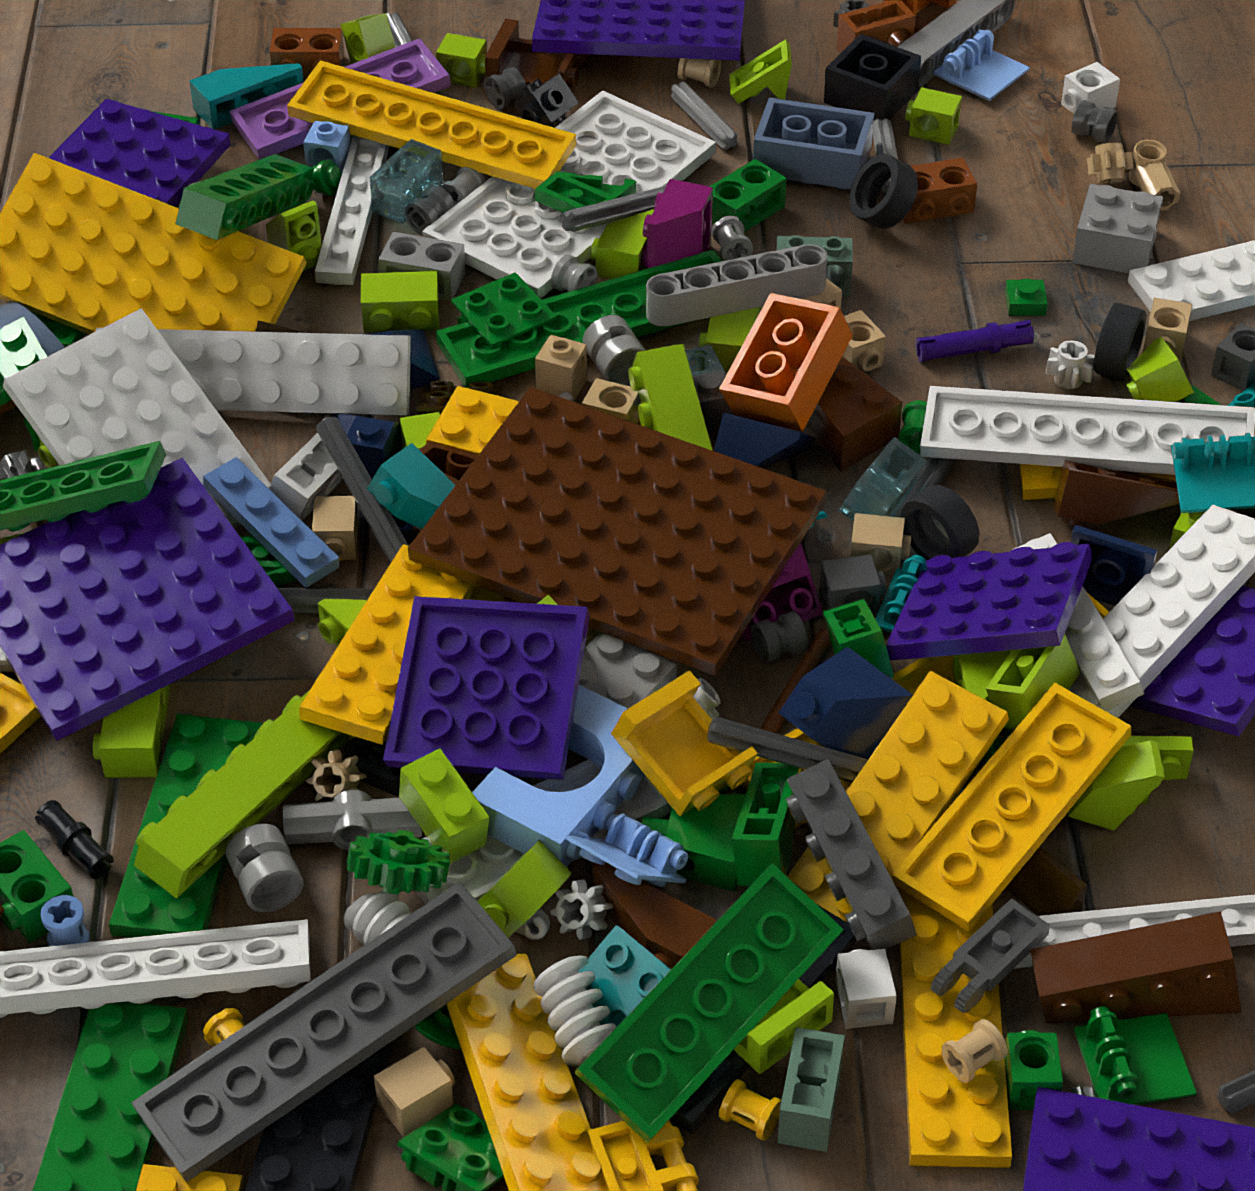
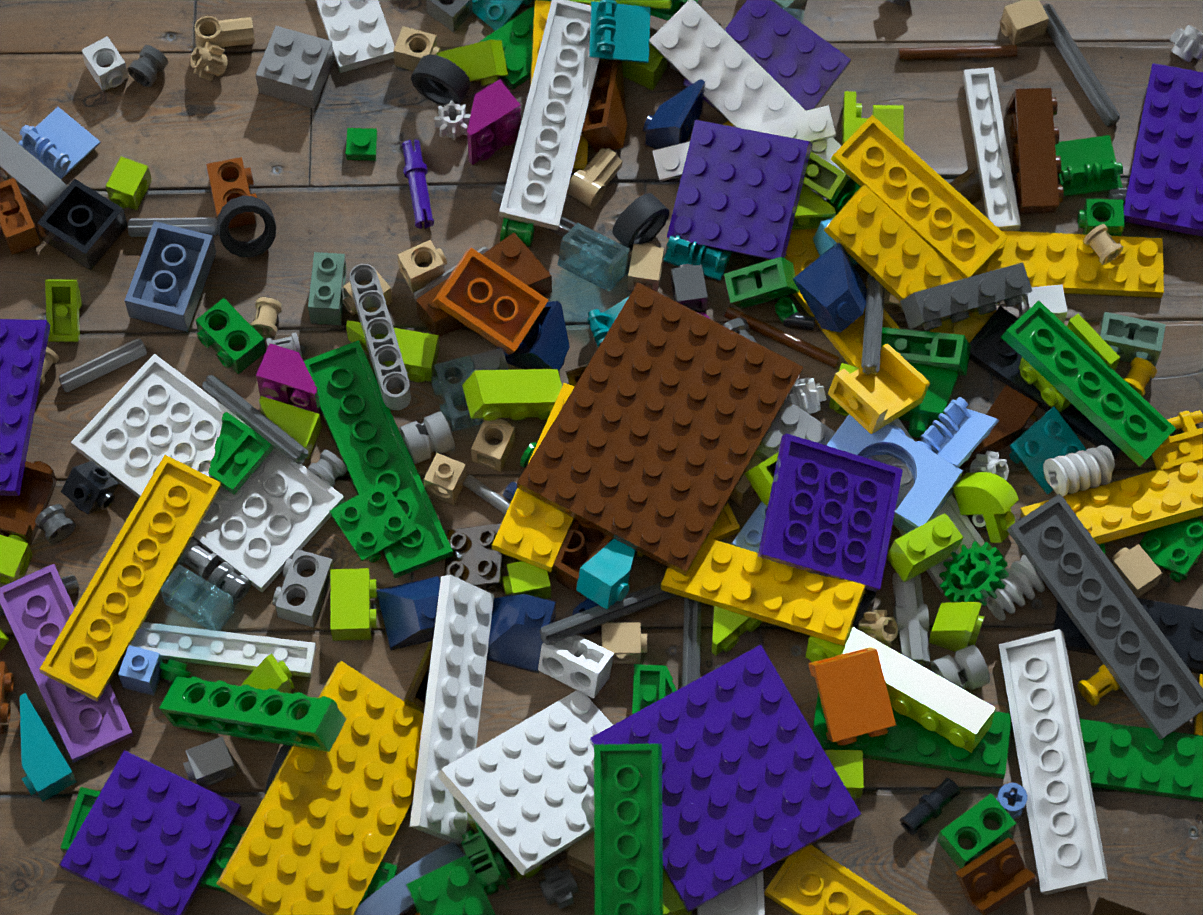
camera: 90 degrees left, 20 degrees up
(220, 714) = (853, 695): none -> orange panel
(271, 522) = (628, 684): medium blue plate -> none
(324, 863) = (956, 625): none -> lime slope
(772, 224) = (266, 316): none -> tan bush
(991, 953) = (1027, 228): dark grey hinge -> none
(999, 490) = (590, 184): none -> tan piece
(1064, 367) = (492, 122): none -> magenta slope

